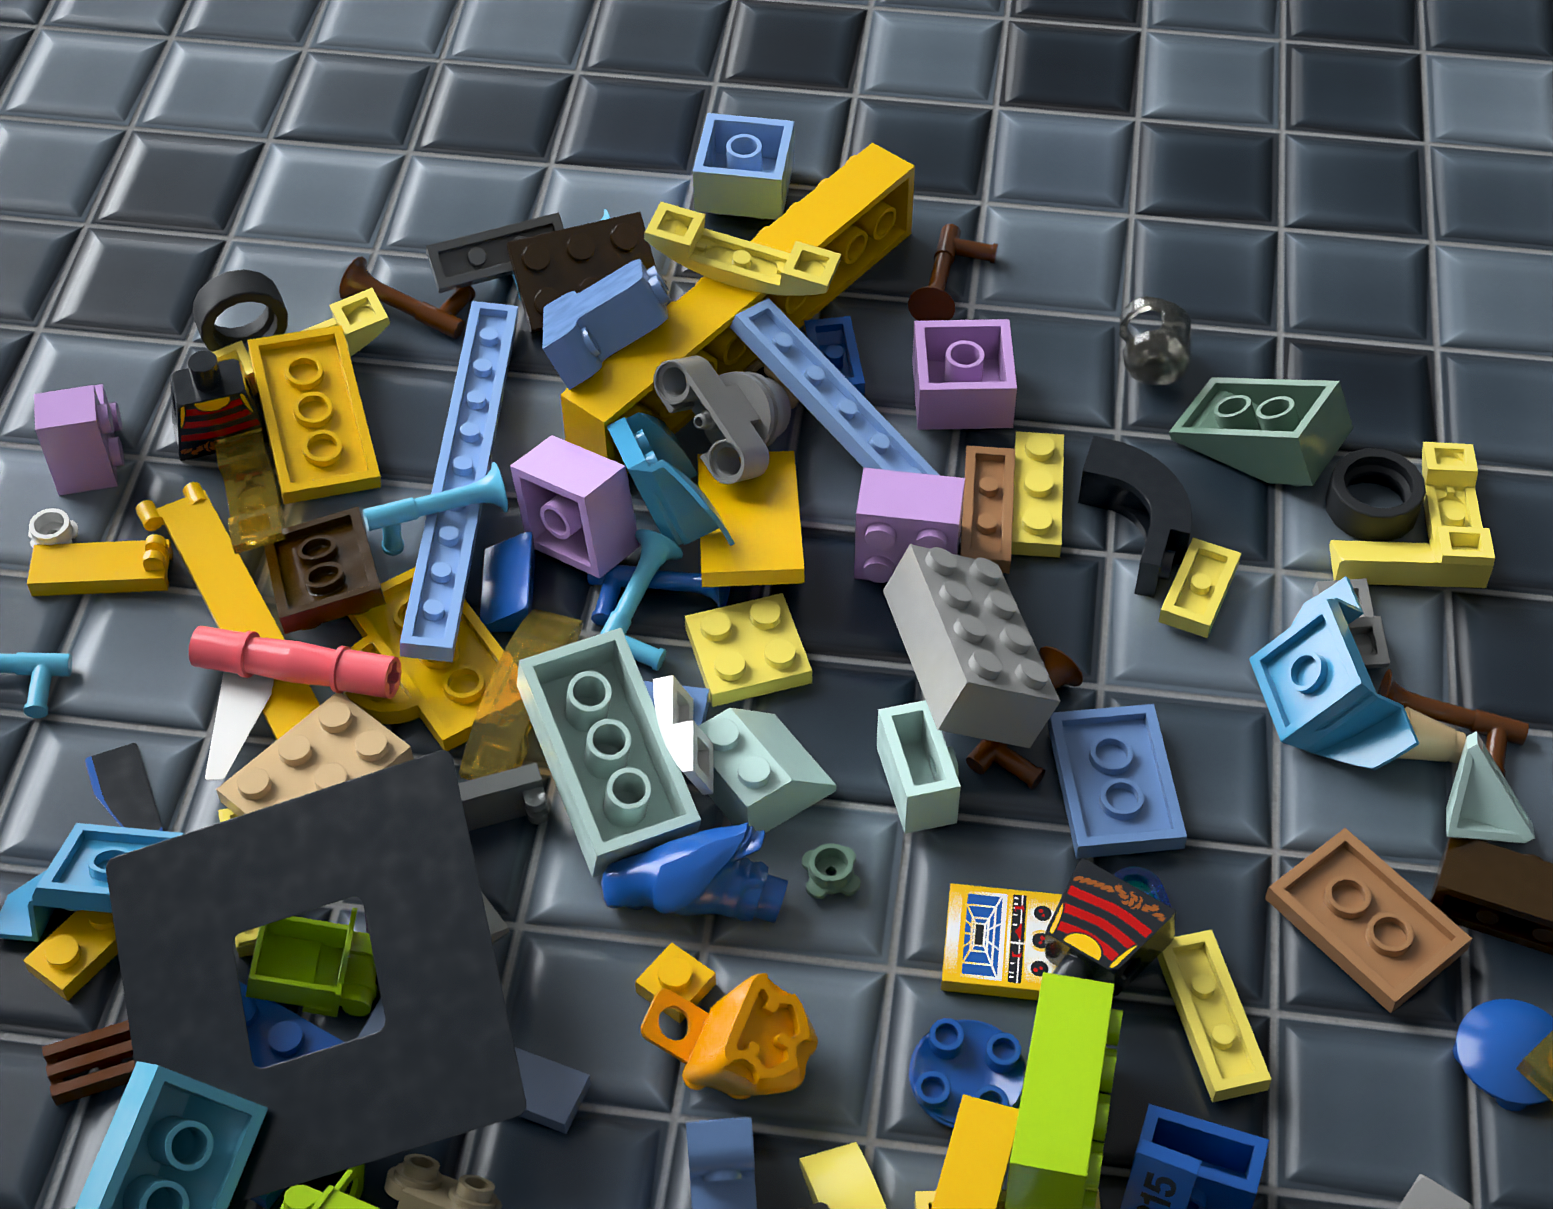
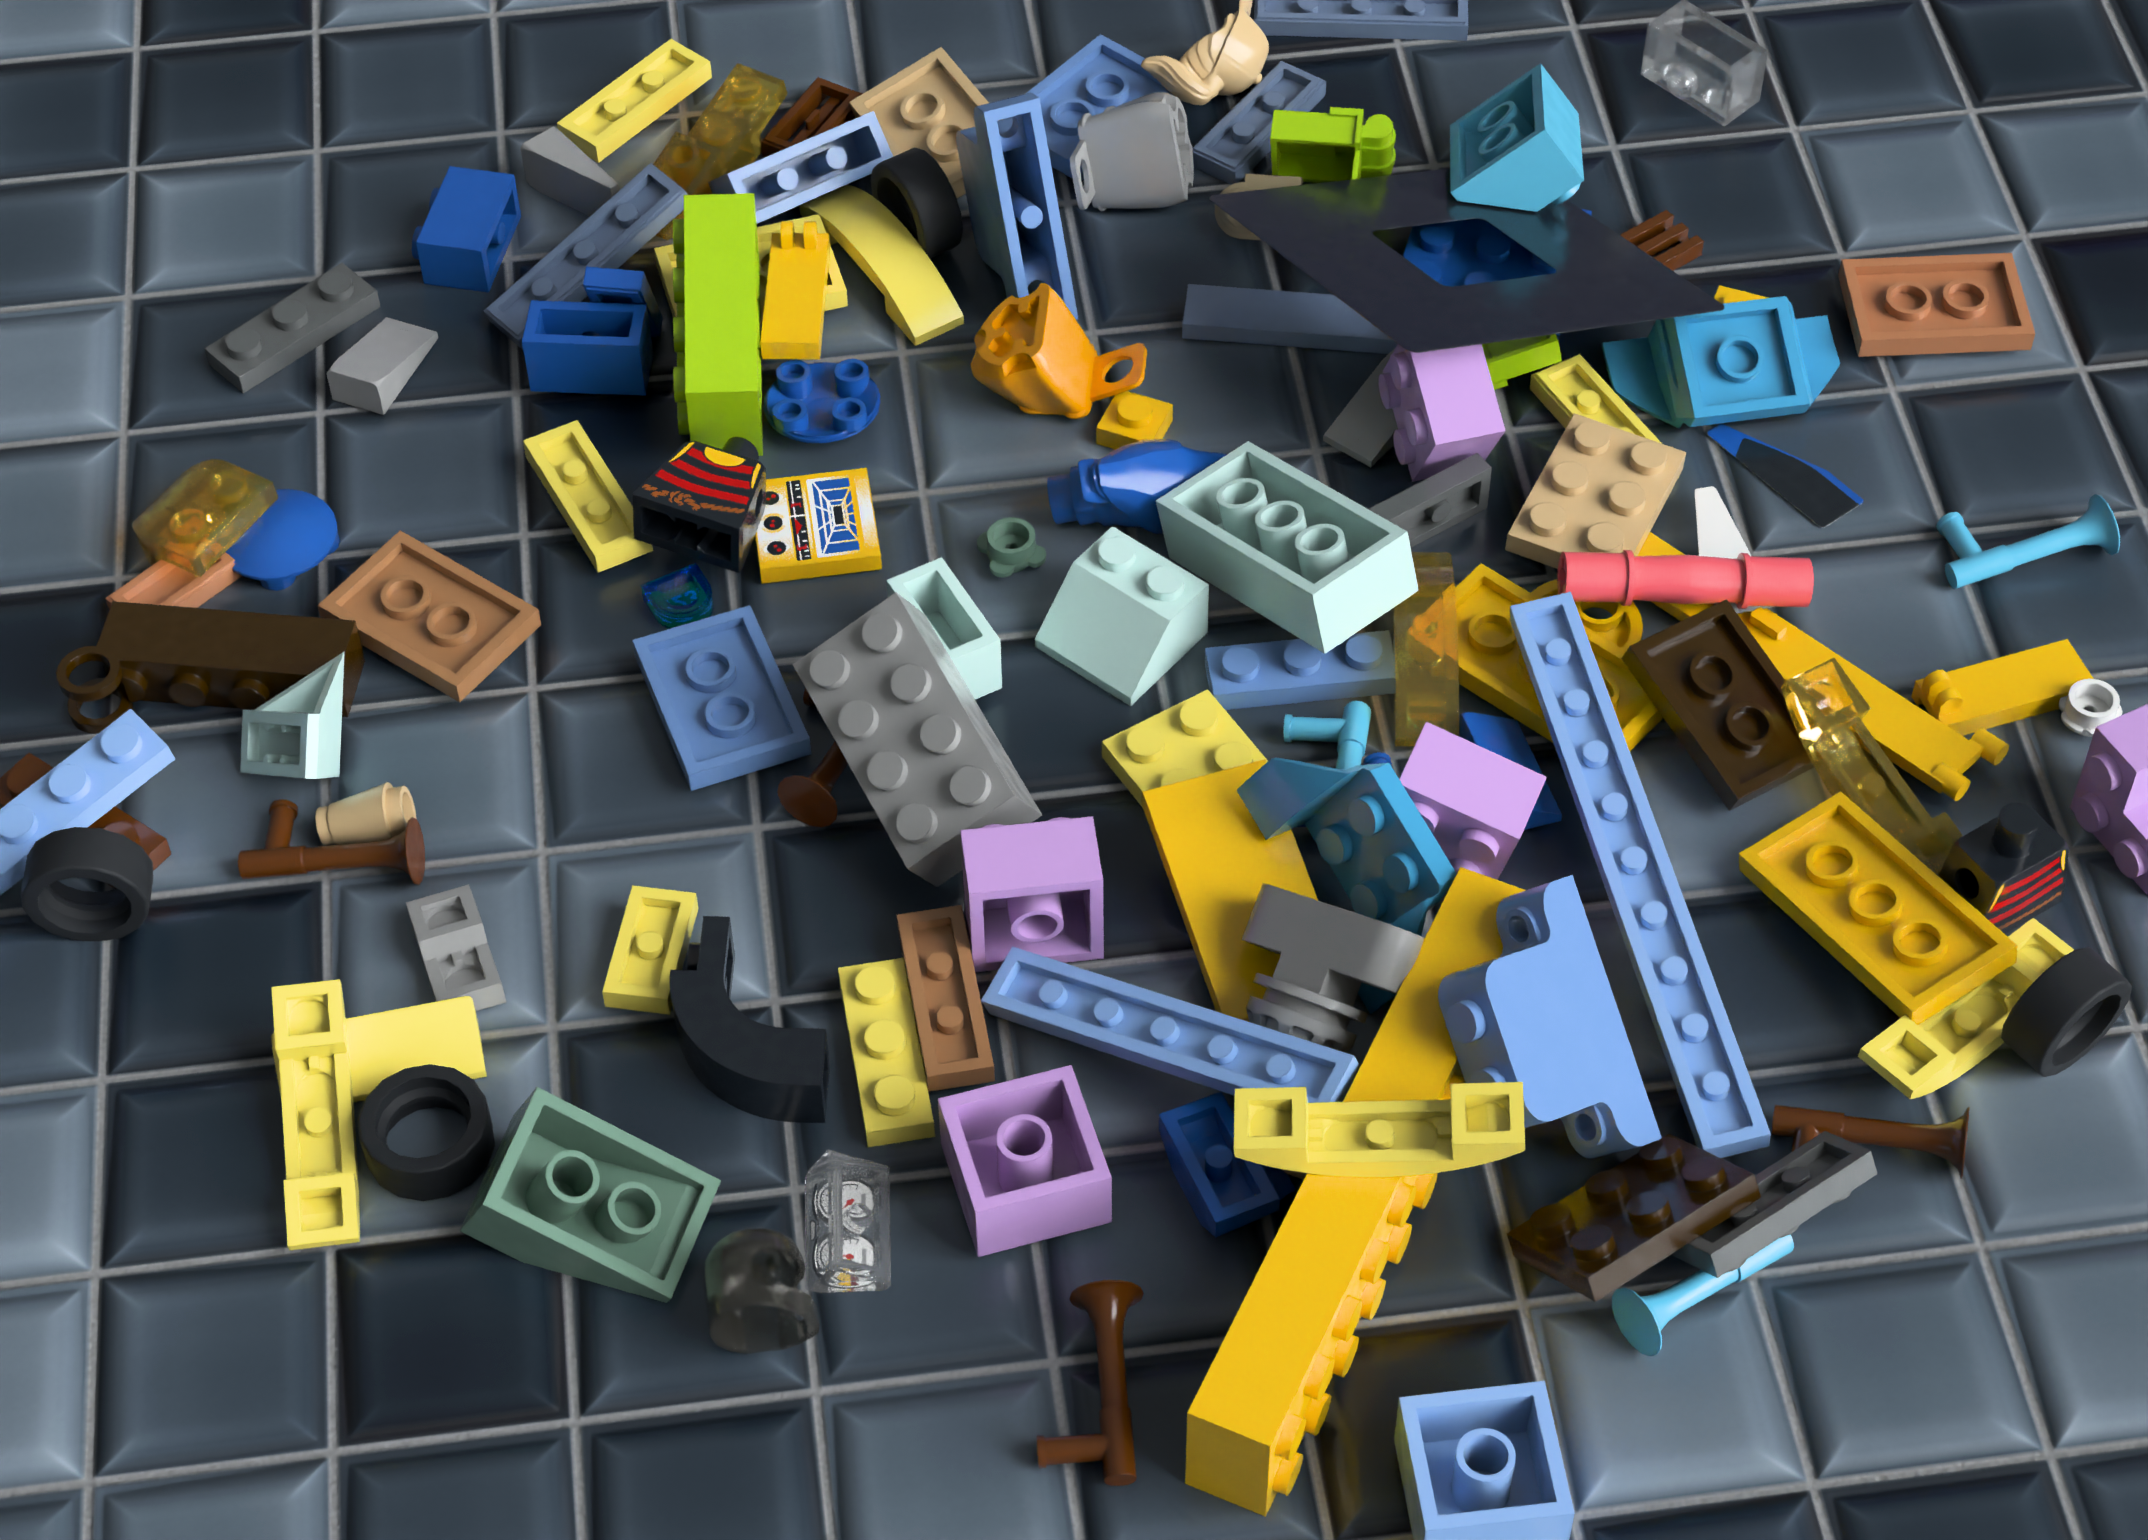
camera: 165 degrees right, 0 degrees up
(391, 515) = (1667, 748): medium azure piece -> none
(682, 736) = (1203, 542): white slope -> none
(1087, 395) = (847, 1225): none -> clear slope
(1323, 690) = (506, 834): dark azure piece -> none

